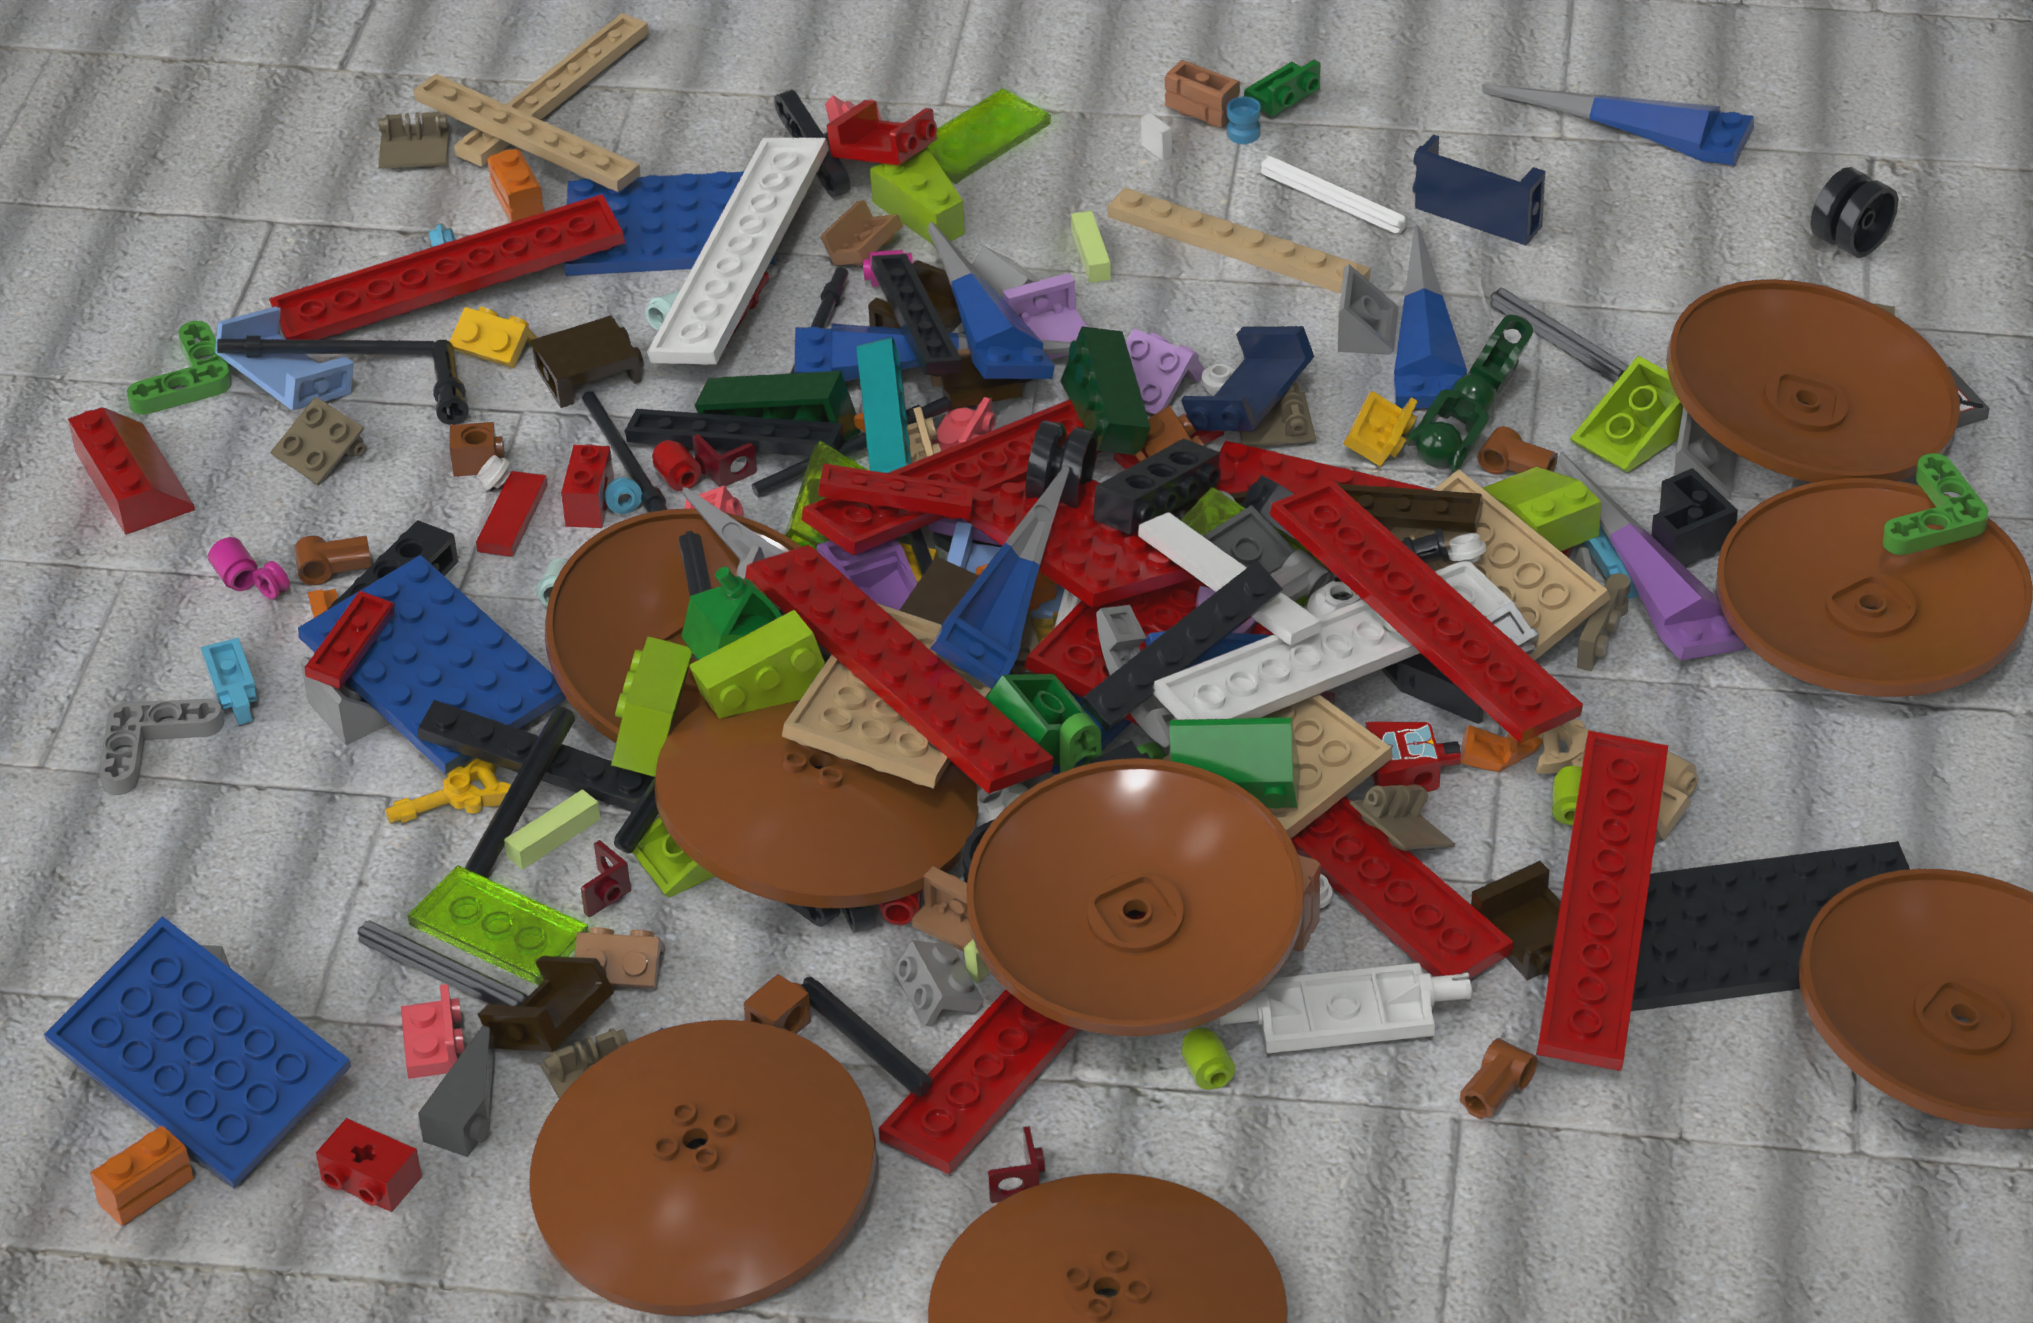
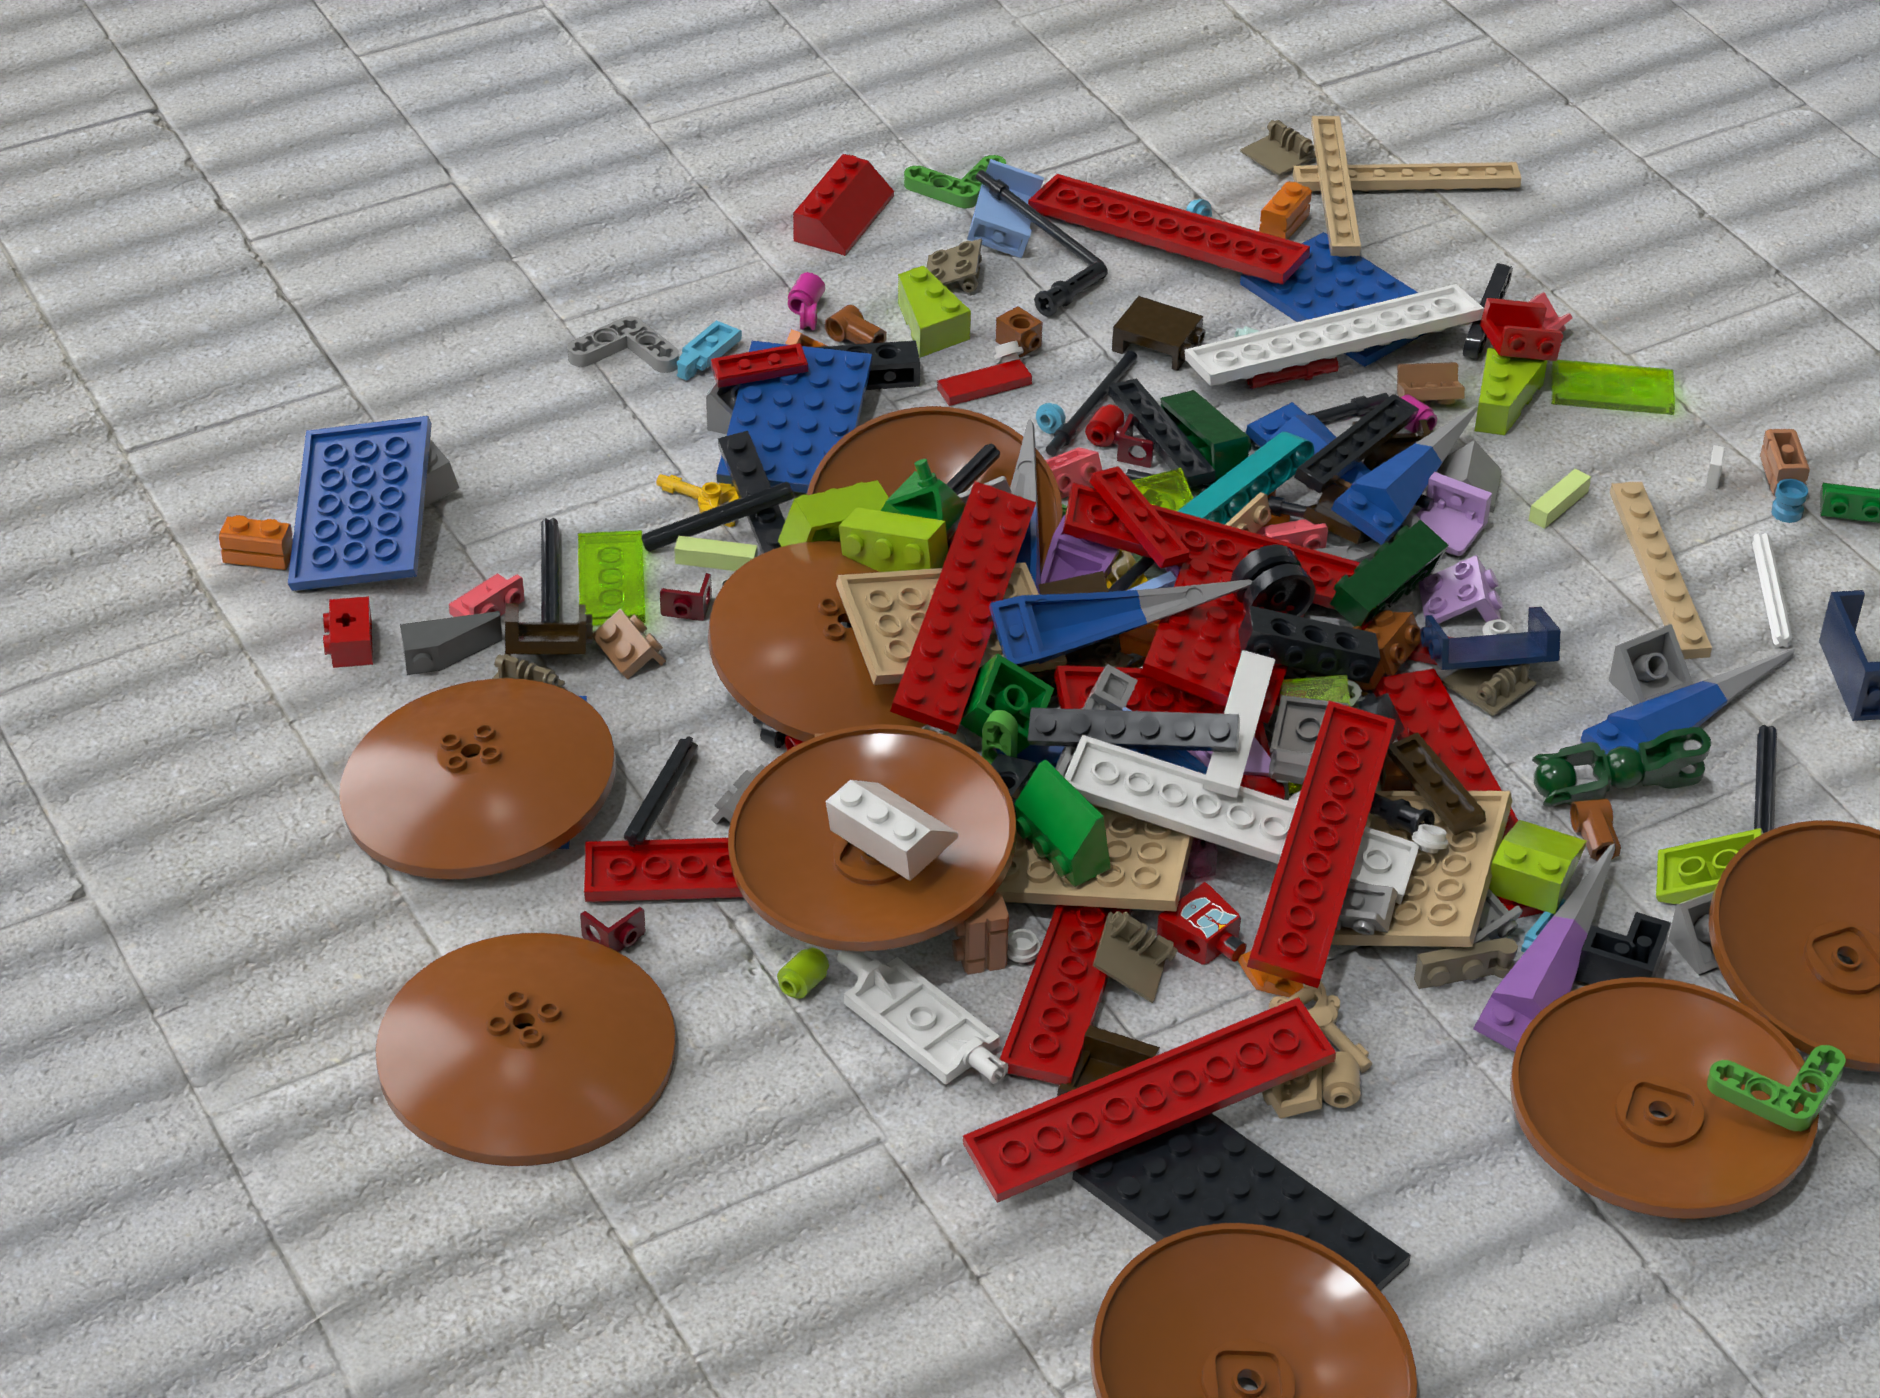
camera: 50 degrees right, 0 degrees up
(370, 489) = (932, 311): none -> lime wedge
(490, 336) = (1133, 279): yellow bracket -> none
(585, 486) = (1028, 393): red brick -> none
(779, 1005) = (648, 740): dark orange brick -> none
(1158, 872) = (887, 827): none -> white slope
(1379, 428) = (1536, 736): yellow bracket -> none
(1501, 1071) = (937, 1137): dark orange piece -> none

